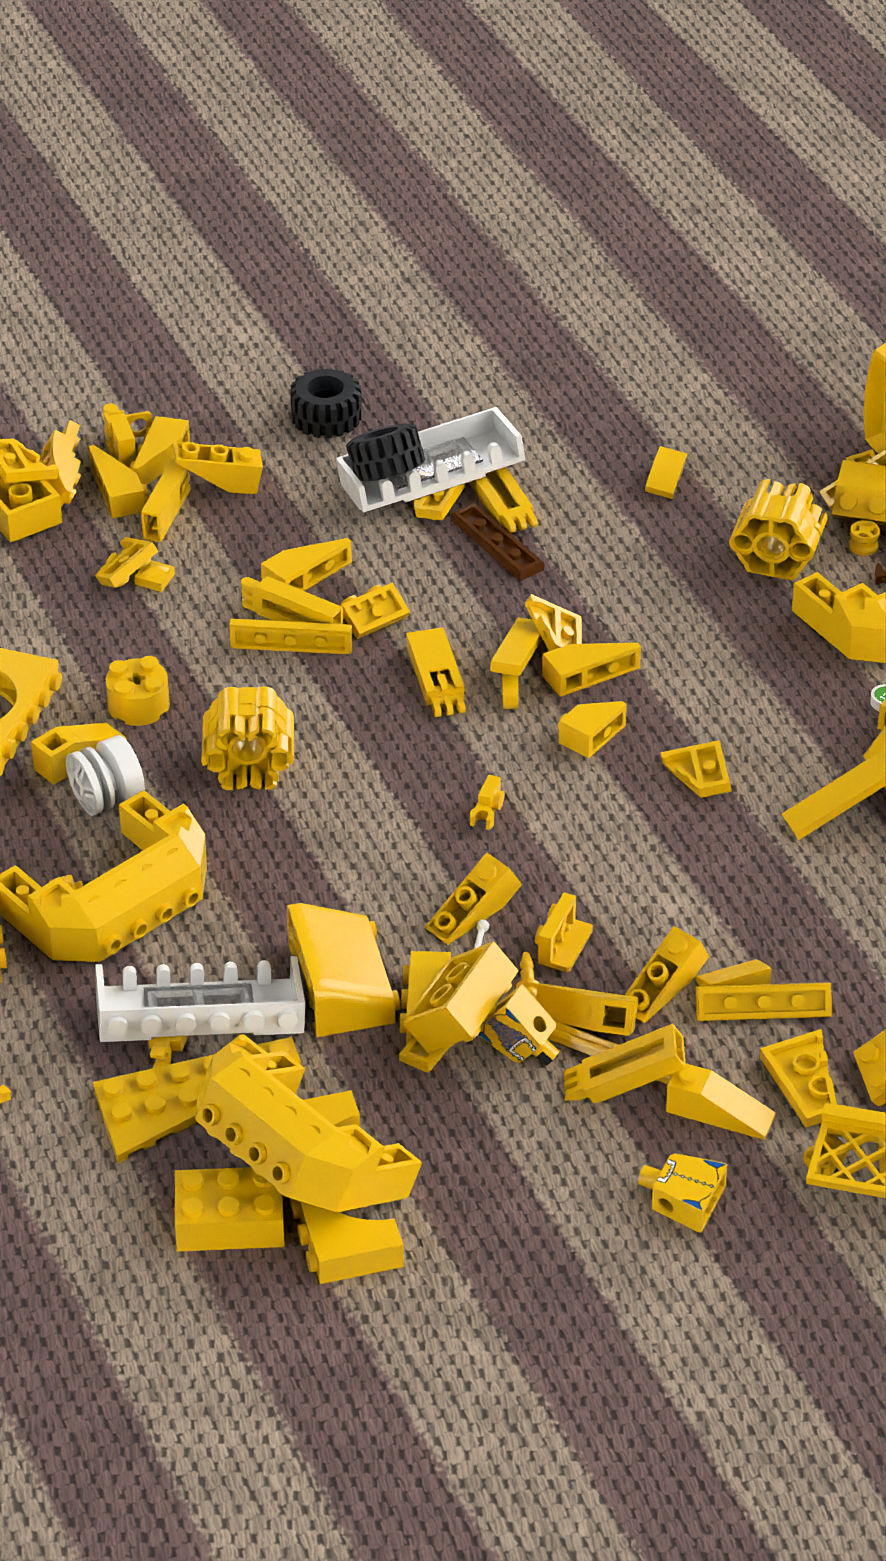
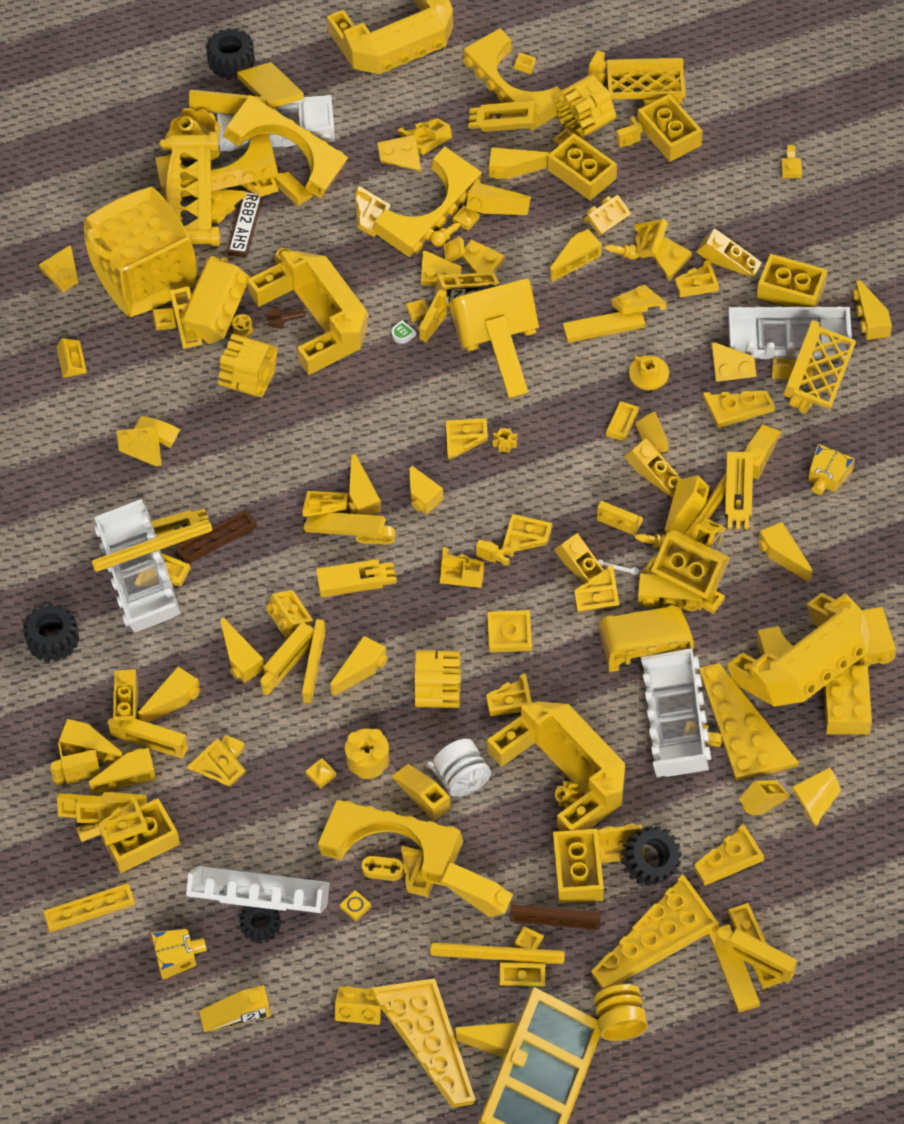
camera: 85 degrees left, 15 degrees up
(55, 1112) = (763, 796): none -> yellow slope
(59, 1178) = (817, 794): none -> yellow slope
(110, 654) = (321, 773): none -> yellow tile
(234, 513) = (172, 695): none -> yellow slope
(234, 834) = (509, 697): none -> yellow wing
(293, 681) = (361, 664): none -> yellow slope
(350, 828) = (509, 631): none -> yellow plate
(385, 452) = (131, 580): black tyre -> none
(421, 916) = (598, 592): none -> yellow wing
(453, 459) = (151, 545): none -> yellow axle
(459, 776) = (461, 570): none -> yellow slope
(520, 1131) = (782, 549): none -> yellow slope
(527, 839) = (526, 533): none -> yellow wing
(641, 454) = (141, 444): none -> yellow wing
(695, 808) = (504, 440): none -> yellow gear
(757, 944) = (622, 421): none -> yellow tile
(763, 1001) = (677, 420): yellow tile -> none
(784, 393) = (71, 358): none -> yellow slope
(853, 965) = (648, 372): none -> yellow piece

